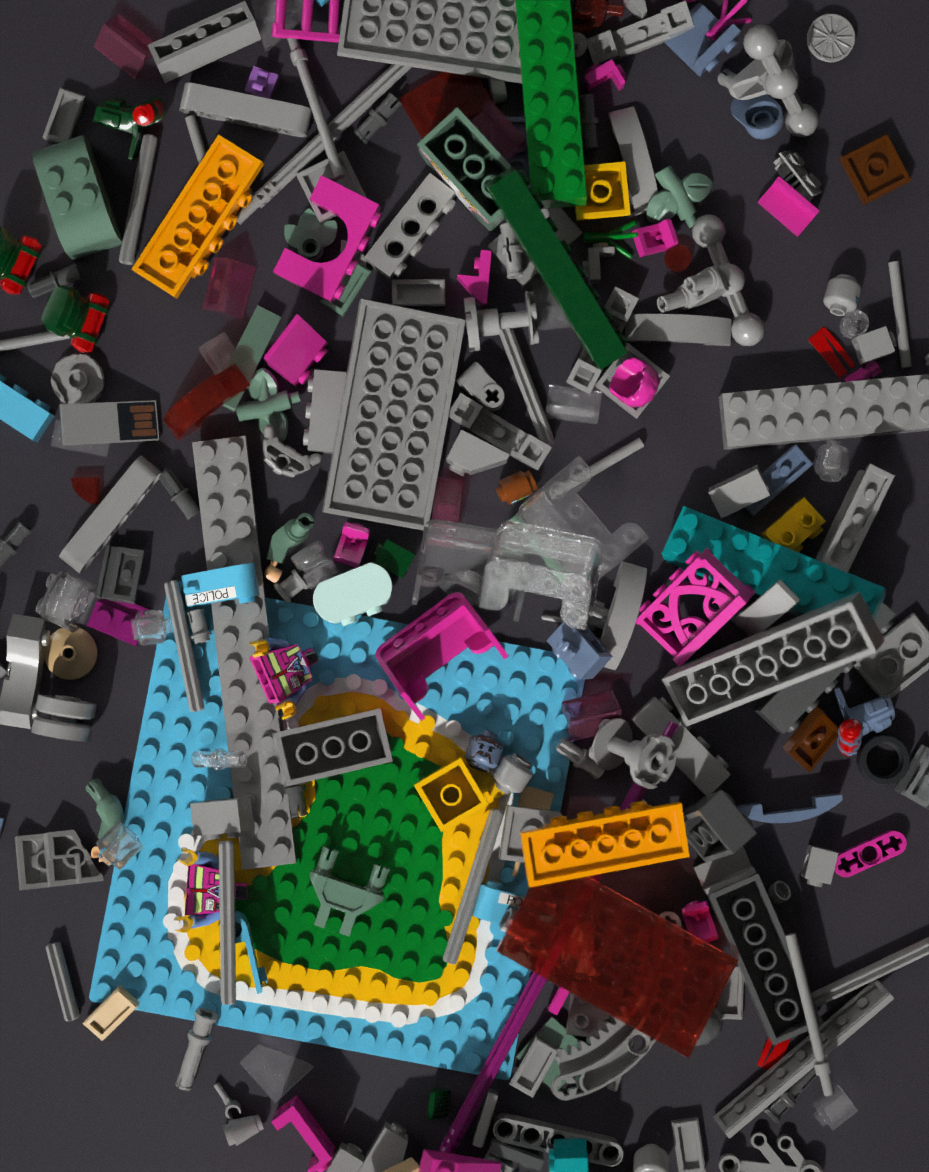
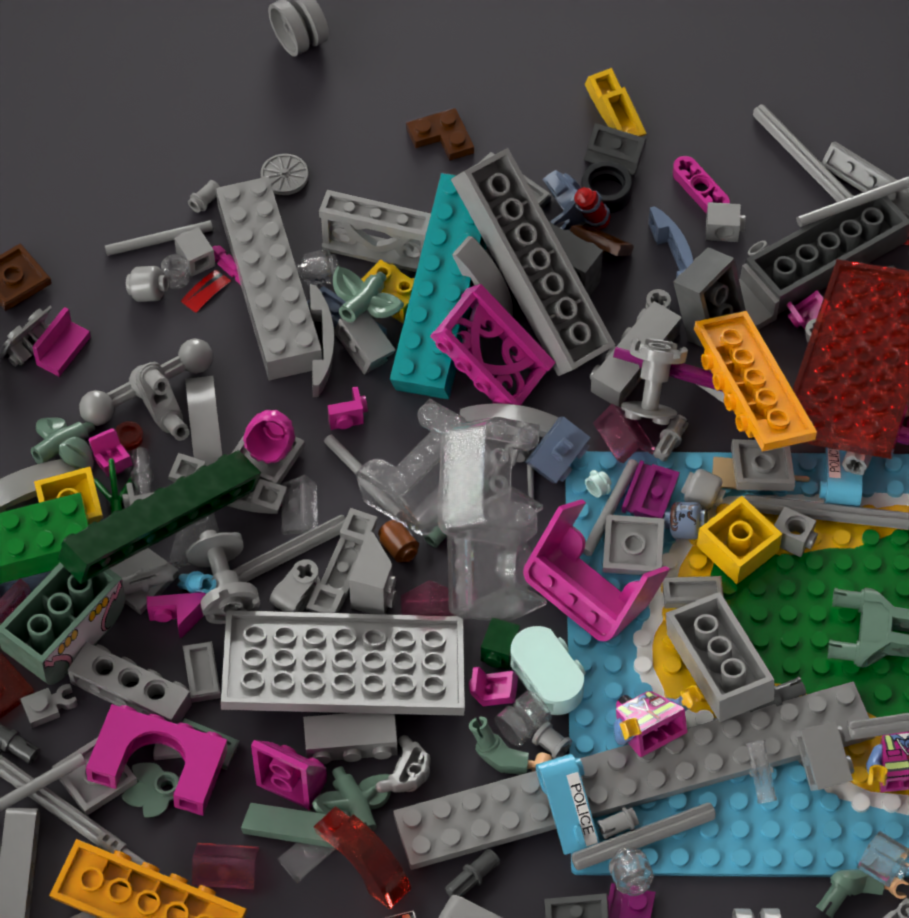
camera: 100 degrees left, 30 degrees down
(408, 153) = (44, 706): none -> light grey plate
(414, 742) = (685, 590): none -> light grey tile
(458, 835) = (794, 521): none -> light grey brick
(467, 697) = (632, 544): none -> light grey plate
(498, 297) = (196, 582): none -> medium azure axle
(516, 686) = (610, 506): none -> light grey bar
(522, 725) = (650, 491): none -> magenta plate
(540, 680) = (598, 483): none -> light aqua plate
(628, 264) = (141, 474): none -> clear pin
(658, 459) = (348, 413): none -> dark pink bracket
(744, 786) = (660, 295): none -> light grey bush
(777, 496) = (363, 295): none -> sand green plant
(778, 452) = (320, 313): none -> light grey slope

